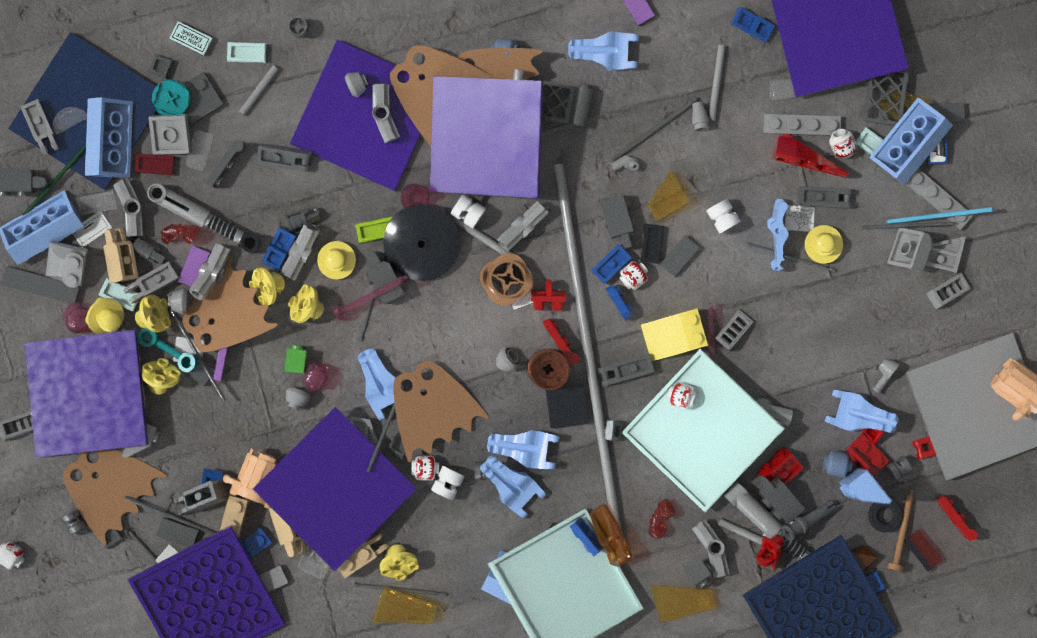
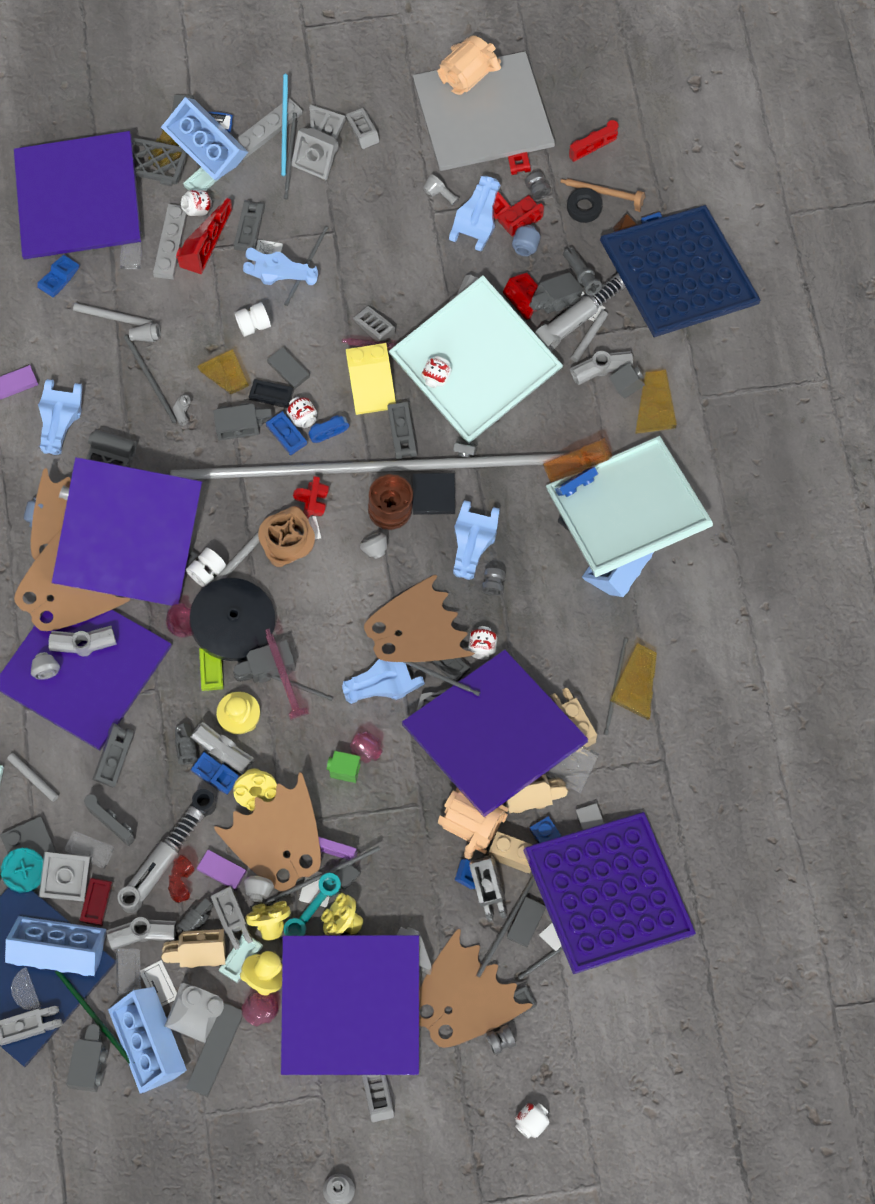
camera: 75 degrees left, 20 degrees down
(210, 272) = (229, 848): light grey piece -> none
(297, 397) = (386, 769): light grey cone -> none
(305, 305) = (282, 748): light yellow plate -> none
(398, 563) = (585, 679): light yellow plate -> none
(450, 476) = (502, 619): white wheel -> none
(513, 486) = (512, 553): light blue animal -> none
(523, 226) = (231, 514): light grey piece -> none
(561, 342) = (360, 492): red plate -> none
(657, 526) = (573, 417): clear red arm -> none
(770, 552) = (610, 307): red hips -> none
(823, 244) = (297, 233): light yellow plate -> none
(862, 486) = (552, 206): light blue slope -> none
(923, 550) = (624, 175): clear red tile -> none

